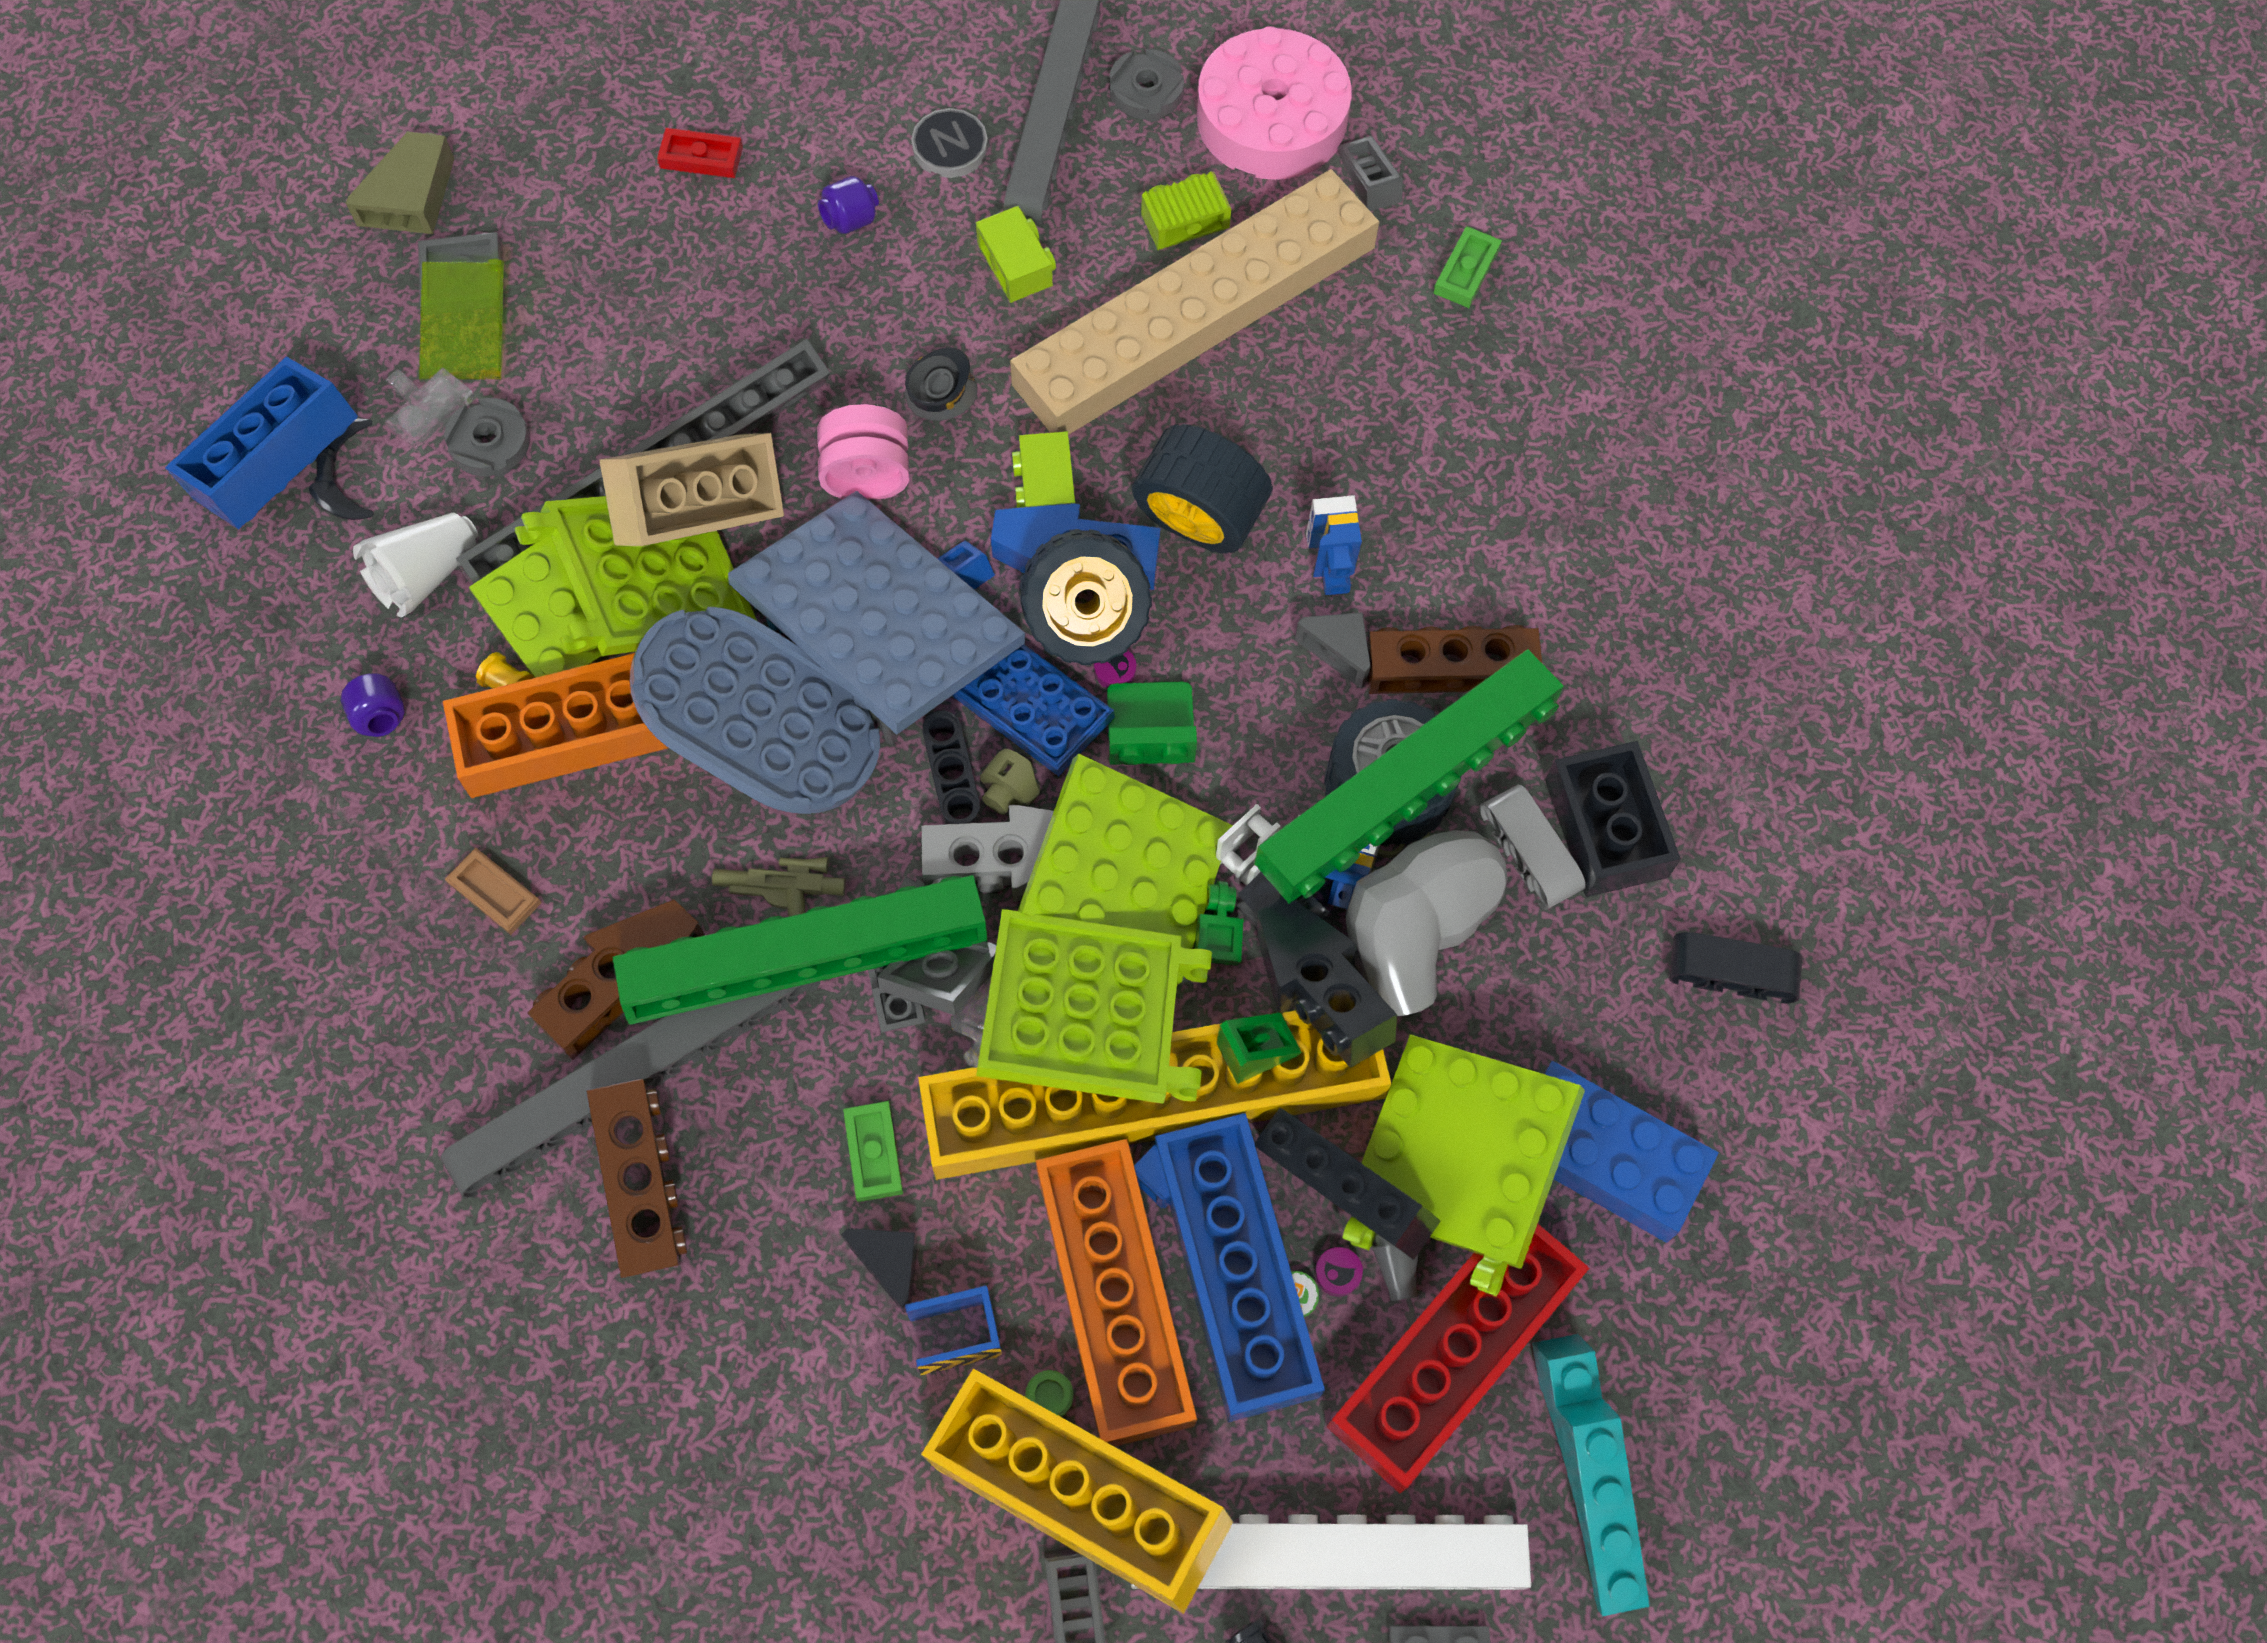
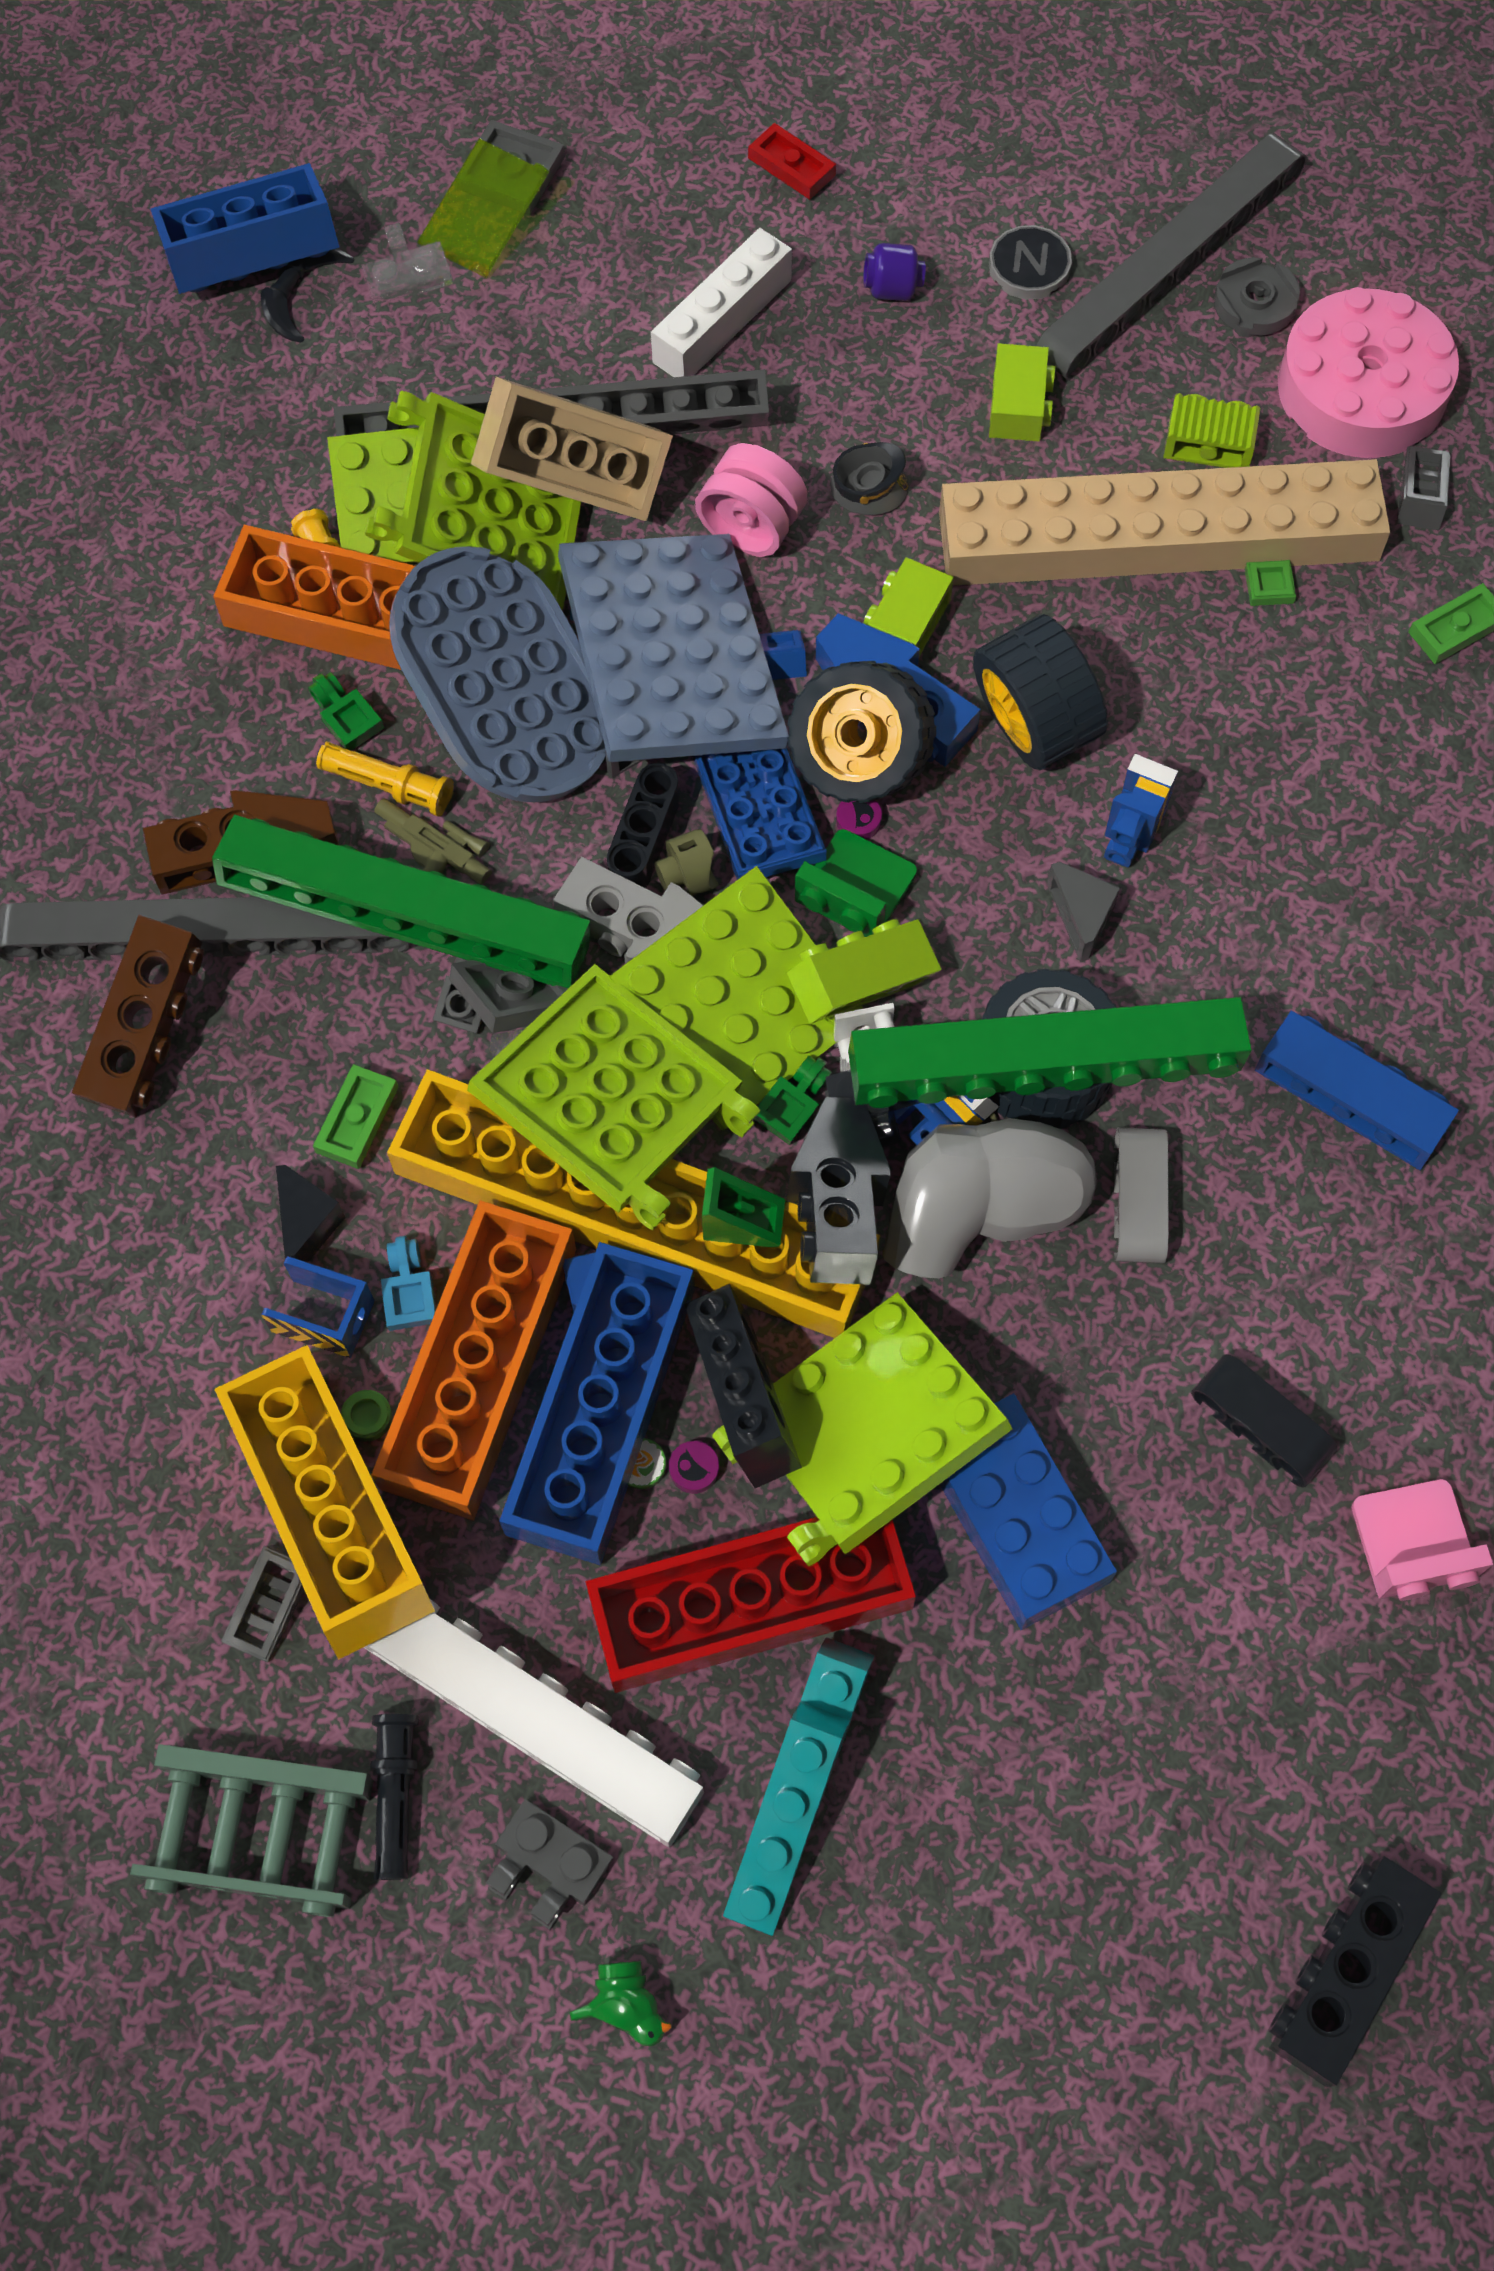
camera: 35 degrees right, 0 degrees up
(372, 705) = (192, 501): dark purple head -> none
(405, 186) = (513, 66): olive slope -> none
(414, 559) = (302, 393): white cone -> none
(492, 457) = (442, 341): dark grey plate -> none
(493, 891) = (189, 714): medium nougat tile -> none
(638, 818) = (348, 717): none -> green plate
(722, 847) = (402, 782): none -> yellow pin
(724, 303) = (721, 305): none -> white brick
(1021, 1275) = (408, 1297): none -> dark azure plate
(1211, 790) = (862, 969): none -> lime brick
(1306, 308) = (1270, 583): none -> bright green tile
(1397, 1270) = (748, 1502): dark grey cone -> none
(1434, 672) = (1172, 956): reddish brown brick -> none
(1612, 818) = (1234, 1211): black brick -> none
(1637, 671) = (1356, 1089): none -> blue brick
(1903, 993) = (1417, 1541): none -> bright pink bracket
(2087, 1325) = (1407, 1906): none -> black brick

